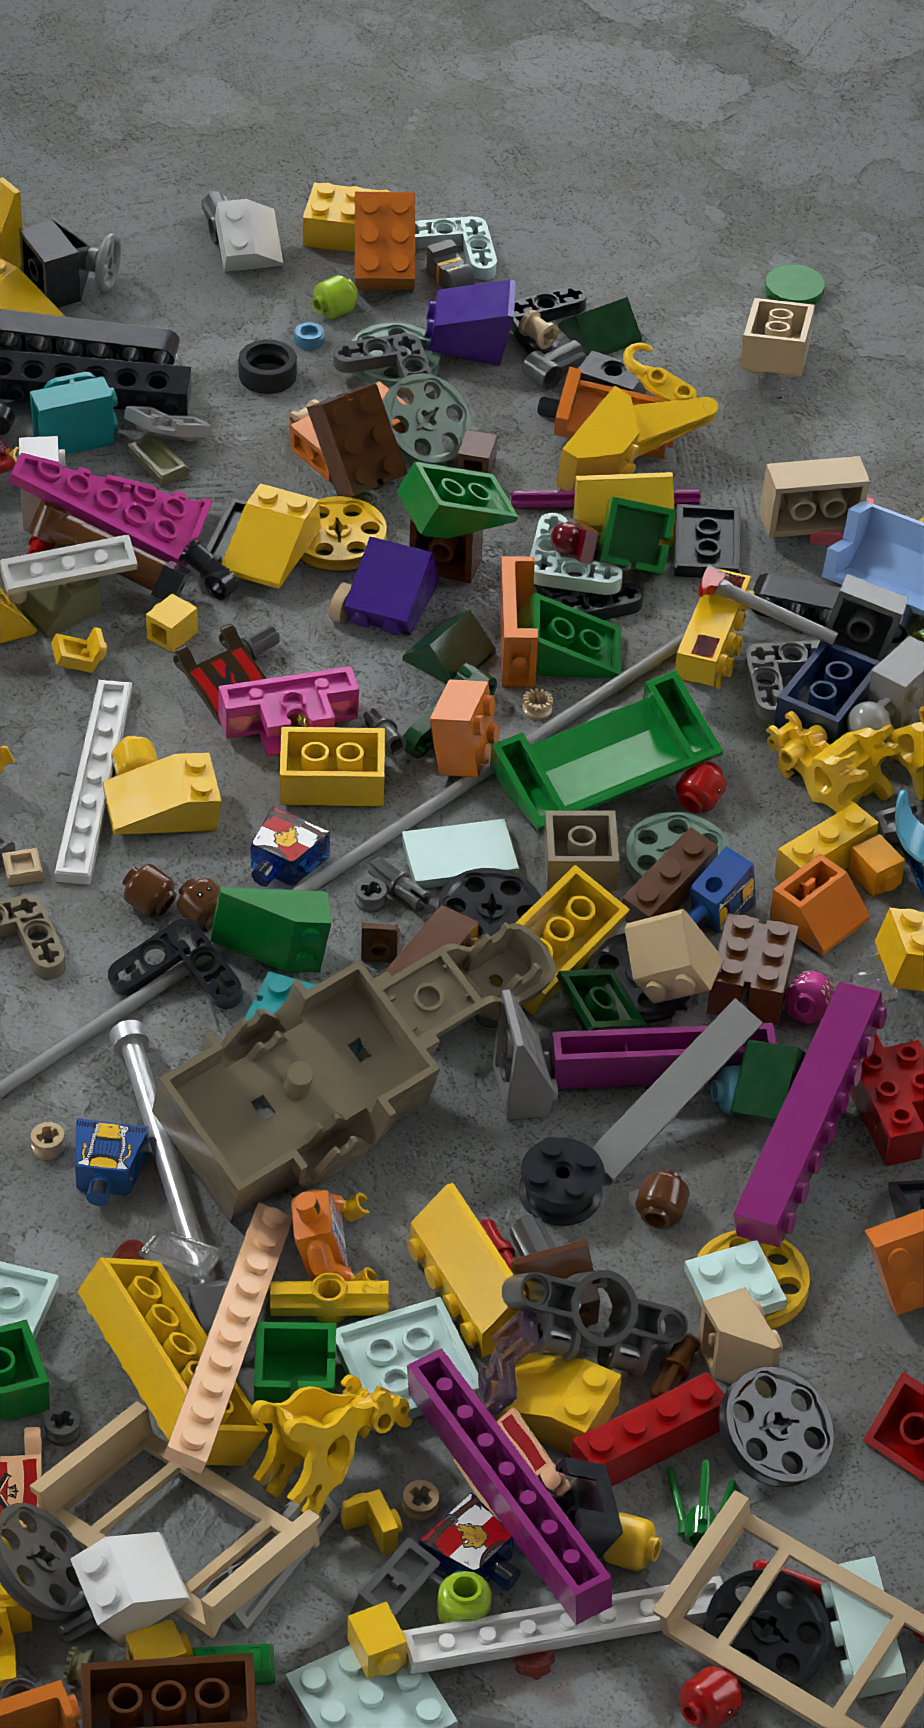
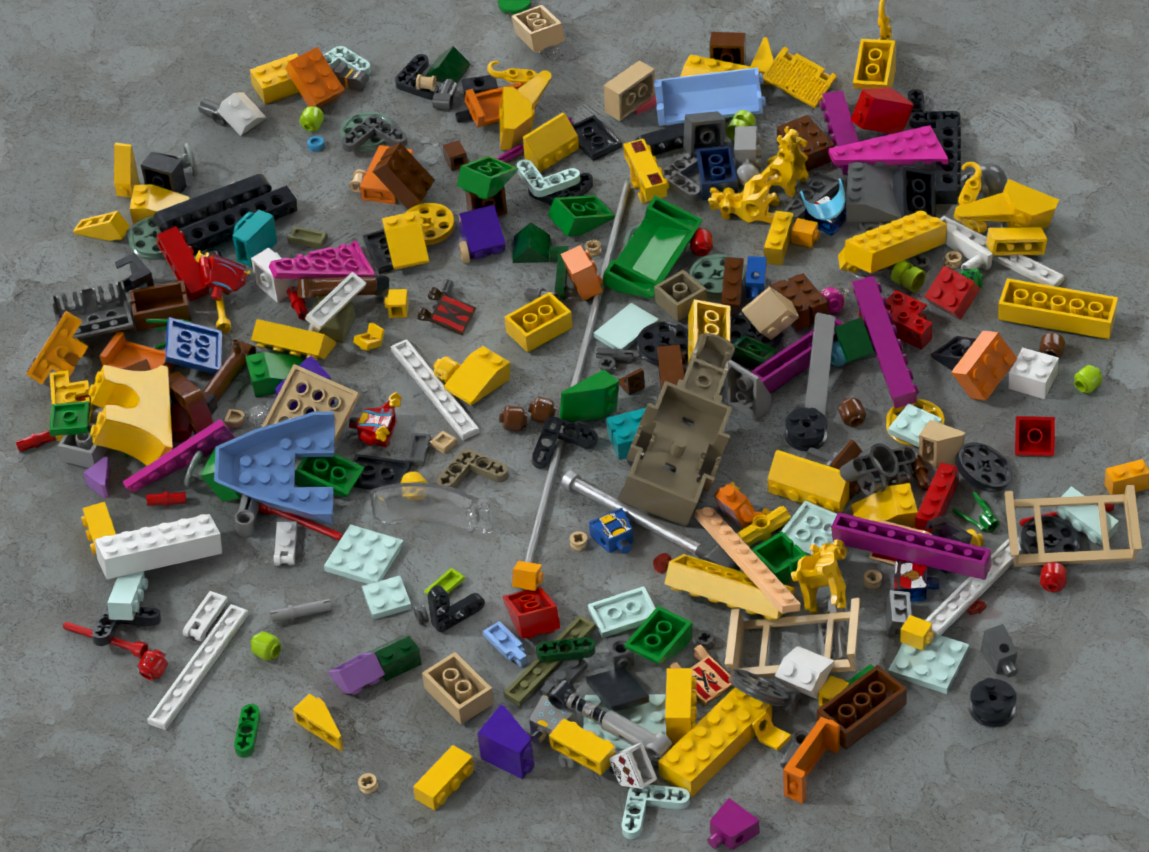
camera: 30 degrees left, 0 degrees up
(75, 1658) = (808, 717): olive bush -> none
(152, 420) = (304, 216): light grey plate -> none
(181, 1253) = (688, 546): clear tile -> none
(210, 569) = (390, 270): black connector -> none
(267, 380) = (314, 176): black tyre -> none
(287, 701) = (491, 308): dark pink piece -> none
(287, 848) = (552, 367): torso -> none
(373, 1510) = (868, 594): yellow bracket -> none
(438, 423) = (424, 149): sand green wedge -> none
(464, 1598) = (930, 600): lime head -> none
(472, 320) = (393, 93): dark purple slope -> none
(514, 1342) = (858, 499): plate -> none
(517, 644) = (562, 227): orange panel -> none
(575, 539) = (547, 165): dark red tile -> none
(633, 535) = (565, 150): green piece -> none
(715, 582) = (634, 149): light grey piece -> none
(821, 903) = (799, 258): orange slope -> none

